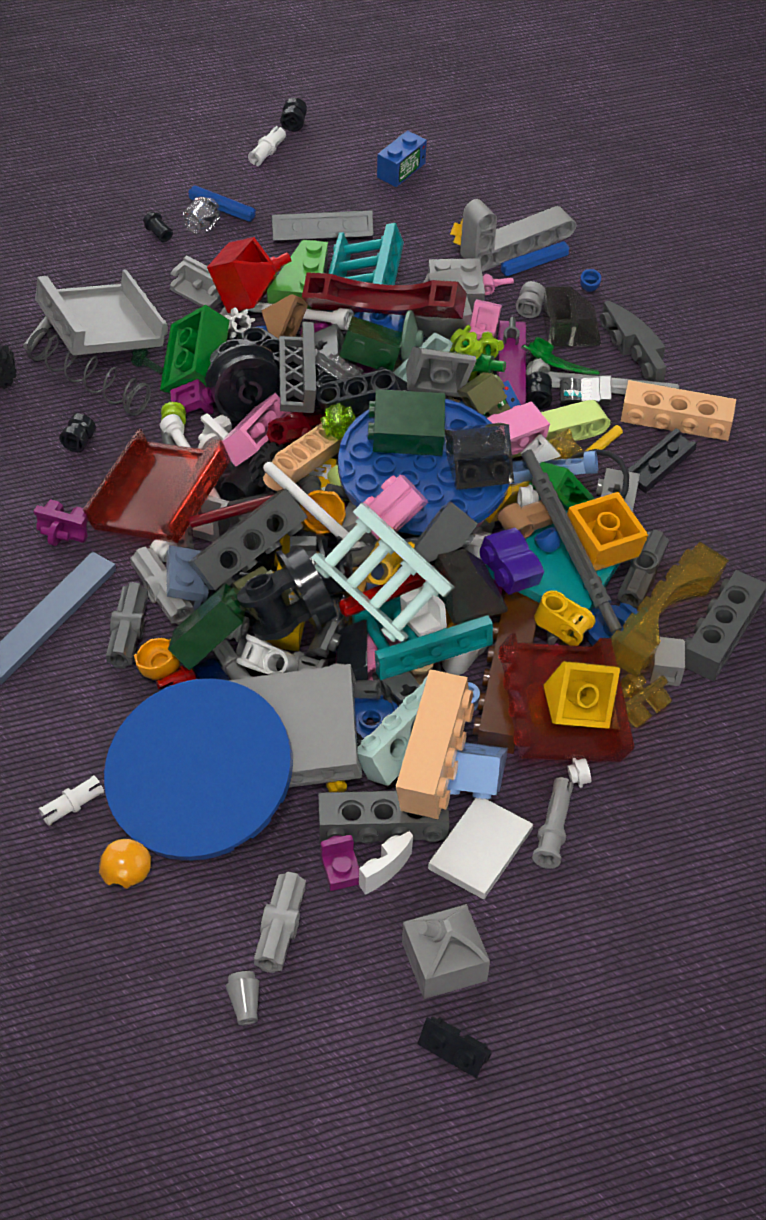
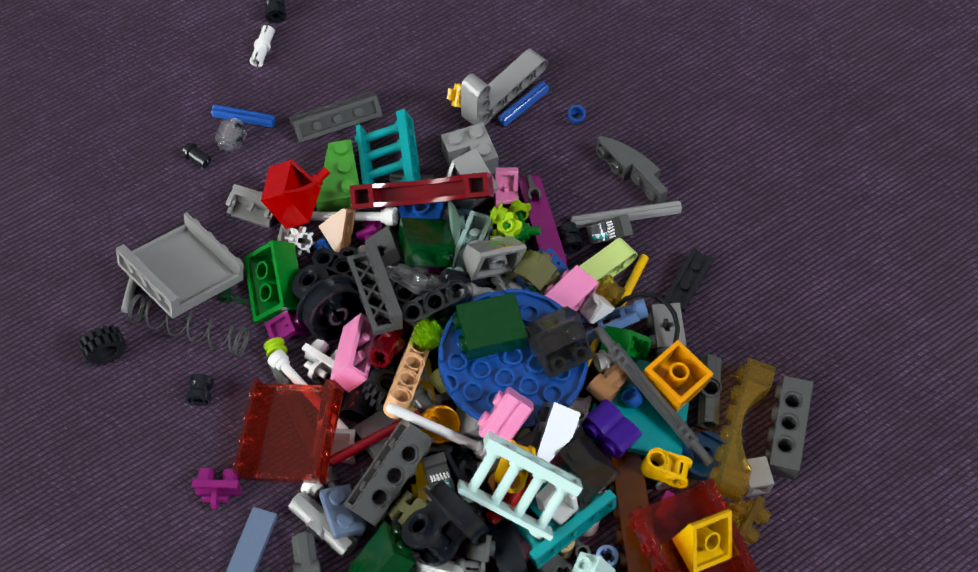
camera: 15 degrees left, 10 degrees up
(401, 158) = (381, 31): blue brick -> none
(490, 283) = (495, 138): bright pink hand -> none
(530, 299) = (534, 147): light grey wheel -> none
(537, 365) = (562, 216): white plate -> none
(543, 349) = (559, 199): green plant -> none
(569, 318) = (572, 160): clear smoke slope -> none
(678, 408) = (698, 220): light nougat brick -> none

